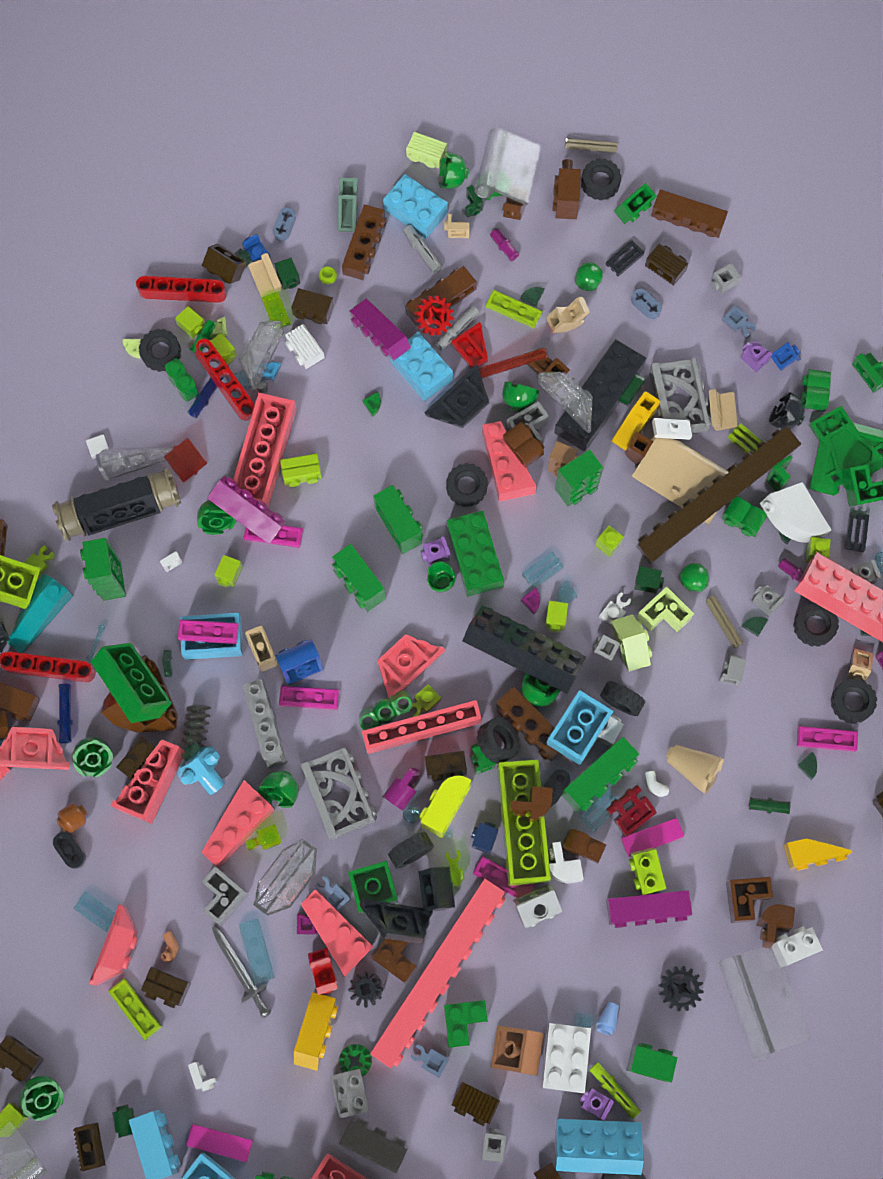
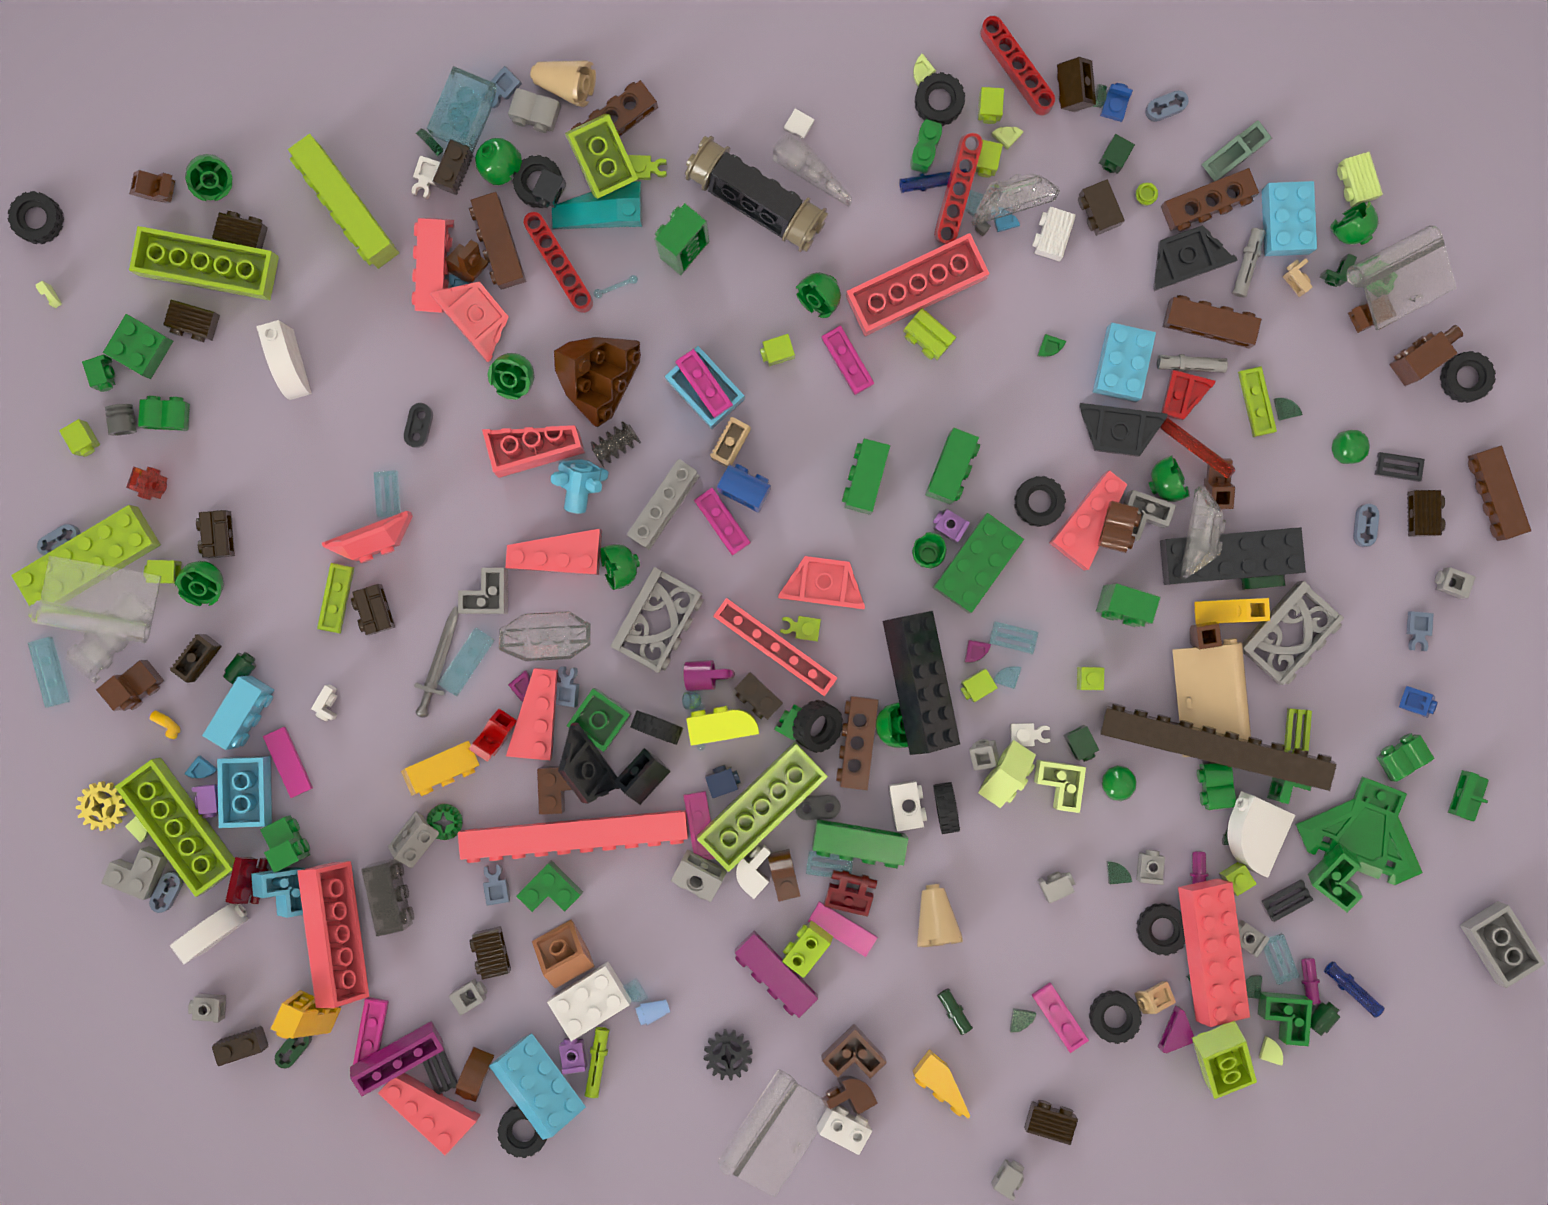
camera: 50 degrees right, 15 degrees up
(65, 713) = (531, 315): clear blue pin -> none
(71, 817) = (446, 403): dark orange head -> none
(130, 682) = (600, 355): green brick -> none
(135, 757) = (543, 415): dark brown brick -> none
(166, 661) = (654, 363): clear green tile -> none
(171, 561) = (744, 290): white tile -> none
(171, 949) = (408, 587): nougat arm -> none
(185, 460) = (850, 218): clear red piece -> none
(189, 751) = (587, 458): clear green tile -> none
(204, 334) = (986, 129): green axle -> none
(246, 509) = (846, 320): magenta brick -> none
(265, 276) = (1095, 134): tan panel -> none
(267, 838) = (568, 590): clear neon green plate -> none
(275, 309) = (1070, 174): clear neon green plate -> none
(372, 987) = (503, 776): black gear -> none
(379, 329) = (1128, 293): magenta brick -> none
(388, 280) = (1189, 256): none -> black wing
(392, 704) = (753, 599): green piece -> none
(442, 312) = (1191, 340): red gear -> none
(456, 874) = (670, 782): clear neon green plate -> none
(504, 244) = (1318, 338): magenta axle -> none
(537, 807) = (783, 812): reddish brown brick -> none
(560, 456) = (1135, 573): medium nougat brick -> none
(568, 318) = (1290, 462): tan brick -> none
(579, 727) = (886, 792): medium azure brick -> none
(590, 145) = (1498, 337): dark tan axle -> none
(636, 202) = (1466, 432): green brick -> none
(652, 1063) = (642, 1079): green brick -> none
(655, 787) = (890, 896): white arm -> none
(671, 428) = (1250, 653): white plate -> none
(723, 410) = (1311, 684): tan panel -> none
(724, 621) = (1098, 842): dark tan axle -> none
(757, 360) = (1388, 676): medium lavender brick -> none
(788, 413) = (1357, 748): black cylinder -> none

